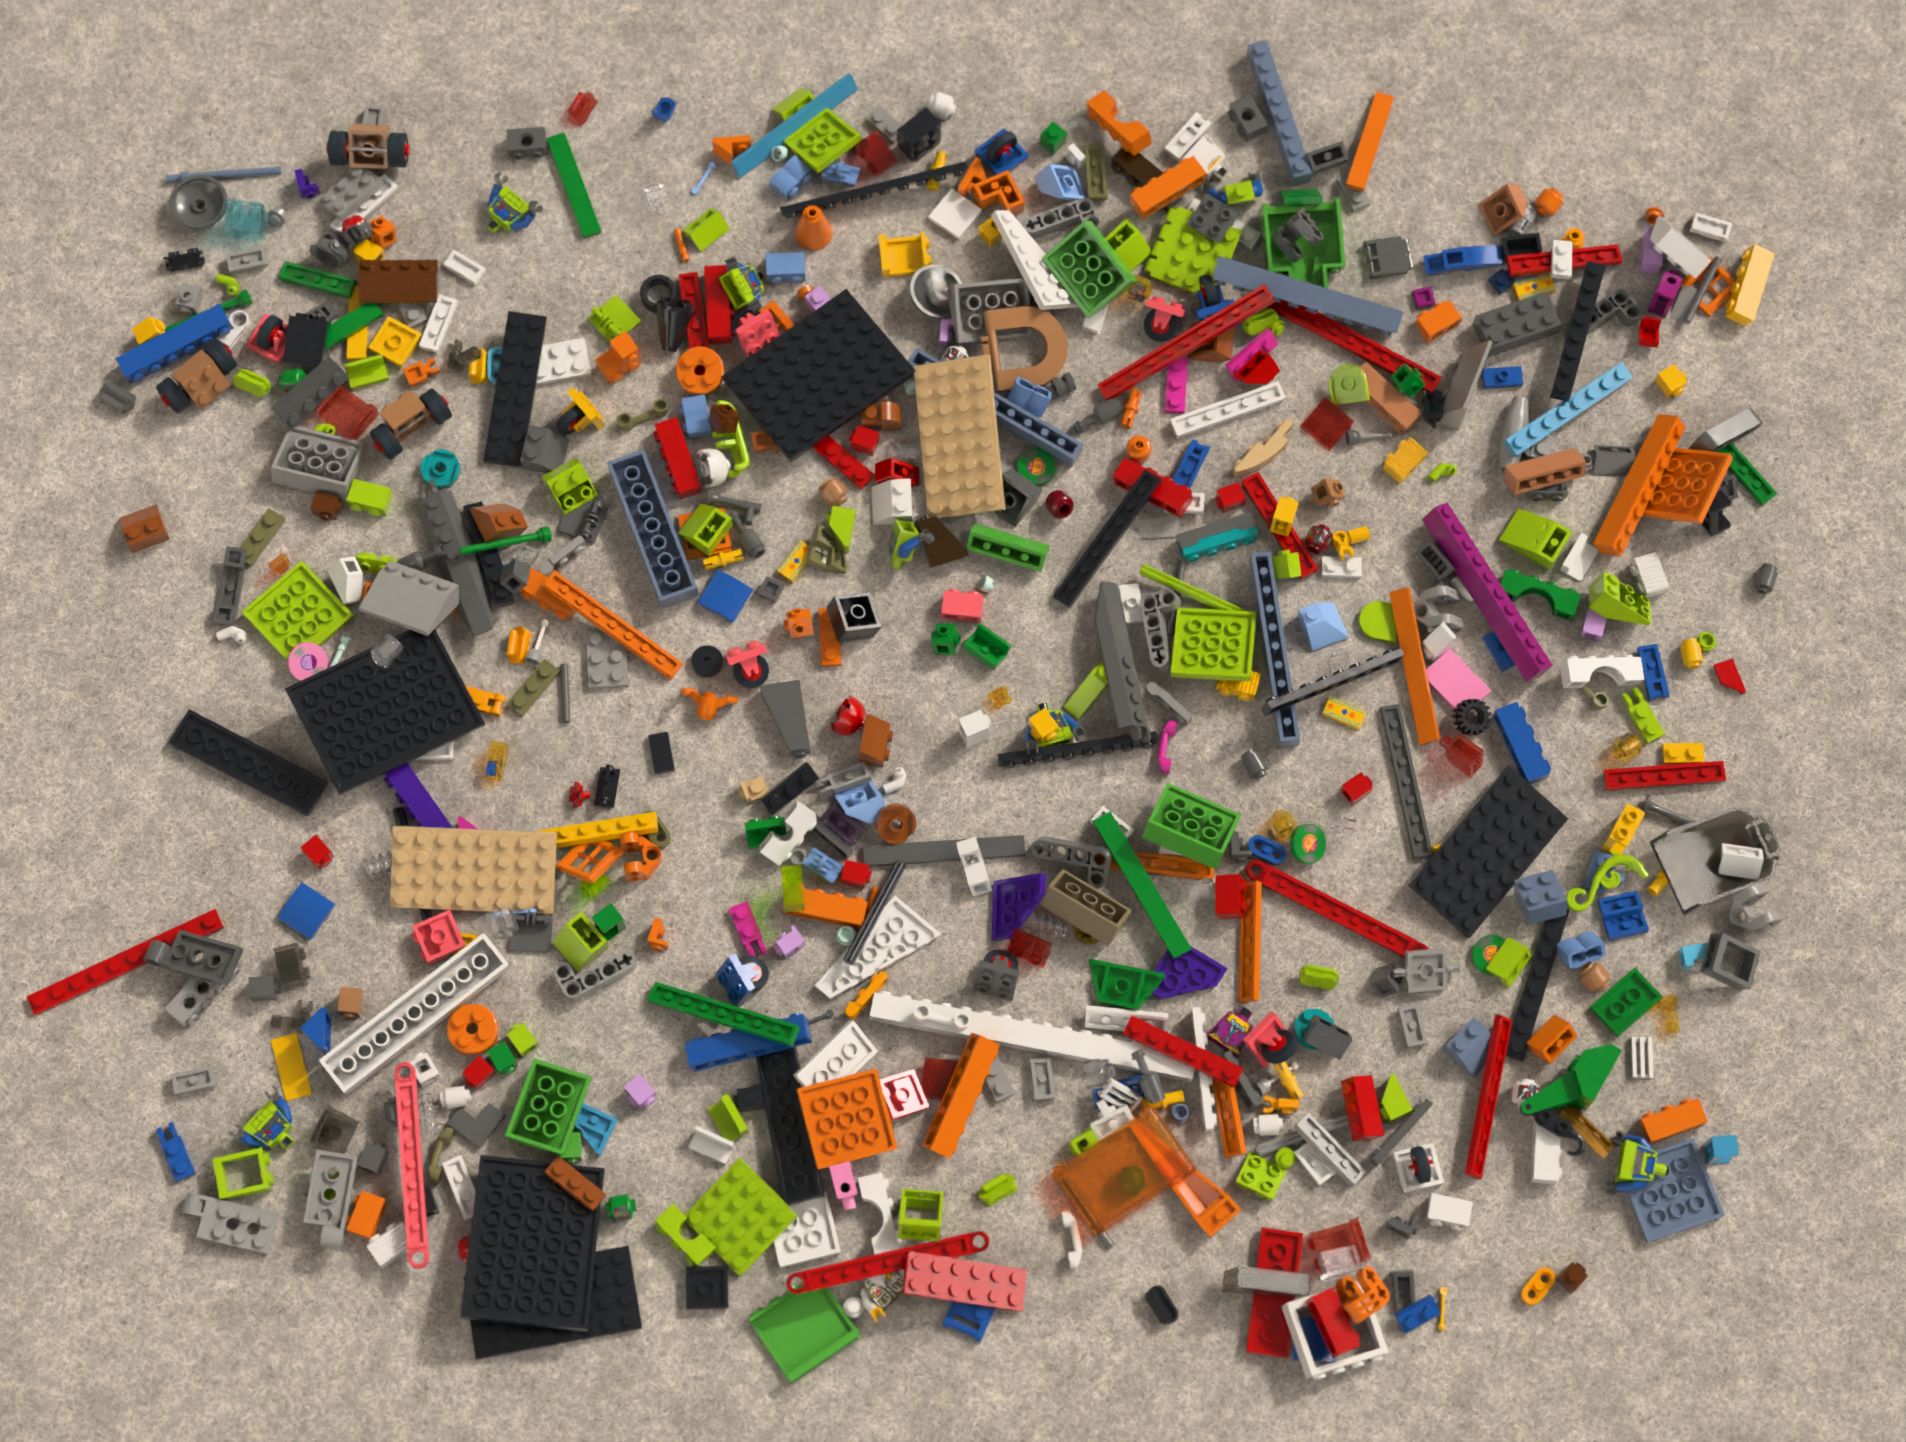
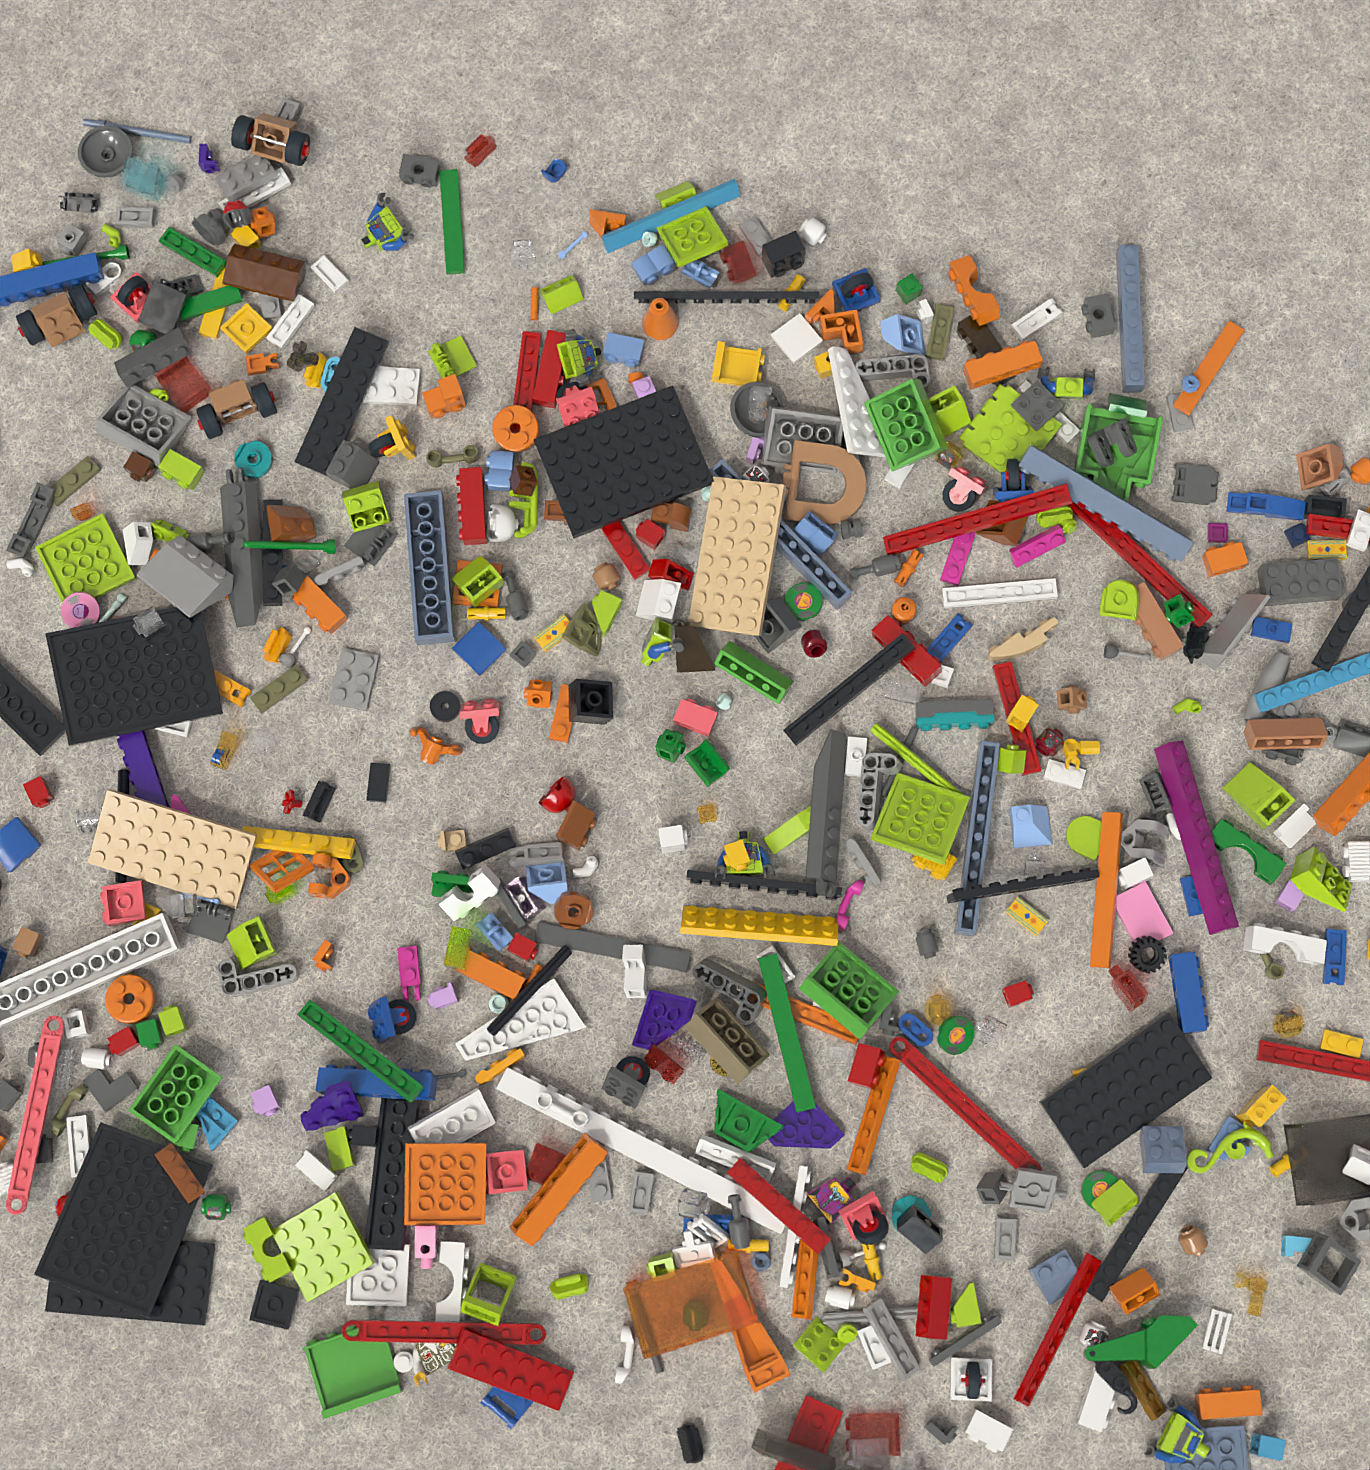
camera: 20 degrees right, 5 degrees up
(366, 372) = (212, 350): lime panel -> none
(565, 693) = (306, 702): dark grey bar -> none
(609, 922) = (281, 932): green panel -> none
(612, 625) = (366, 649): orange tile -> none
(652, 281) = (499, 358): black tyre -> none
(673, 321) = (504, 375): black cone -> none
(712, 1078) = (333, 1107): none -> dark purple plate
(751, 507) = (526, 569): dark grey piece -> none
(787, 710) = (505, 774): dark grey slope -> none
(797, 857) = (474, 916): light grey plate -> none
(1084, 789) = (759, 925): none -> yellow plate
(1209, 157) = (1050, 345): white torso -> none
(1230, 497) = (977, 679): red brick -> none
(1258, 369) = (1038, 562): red slope -> none
(1327, 157) = (1163, 373): dark grey brick -> none
(1327, 424) = (1090, 631): clear red hinge -> none
(1356, 164) = (1188, 387): none -> medium blue plate
(1404, 460) = (1154, 686): yellow brick -> none
(1406, 782) = (1067, 999): dark grey tile -> none
(1579, 950) = (1187, 1211): medium blue brick -> none
(1623, 915) = (1238, 1187): blue slope -> none
(1626, 1002) = (1216, 1273): green tile -> none
(1643, 717) = (1313, 998): lime hinge -> none
(1648, 805) = (1324, 1112): dark grey piece -> none

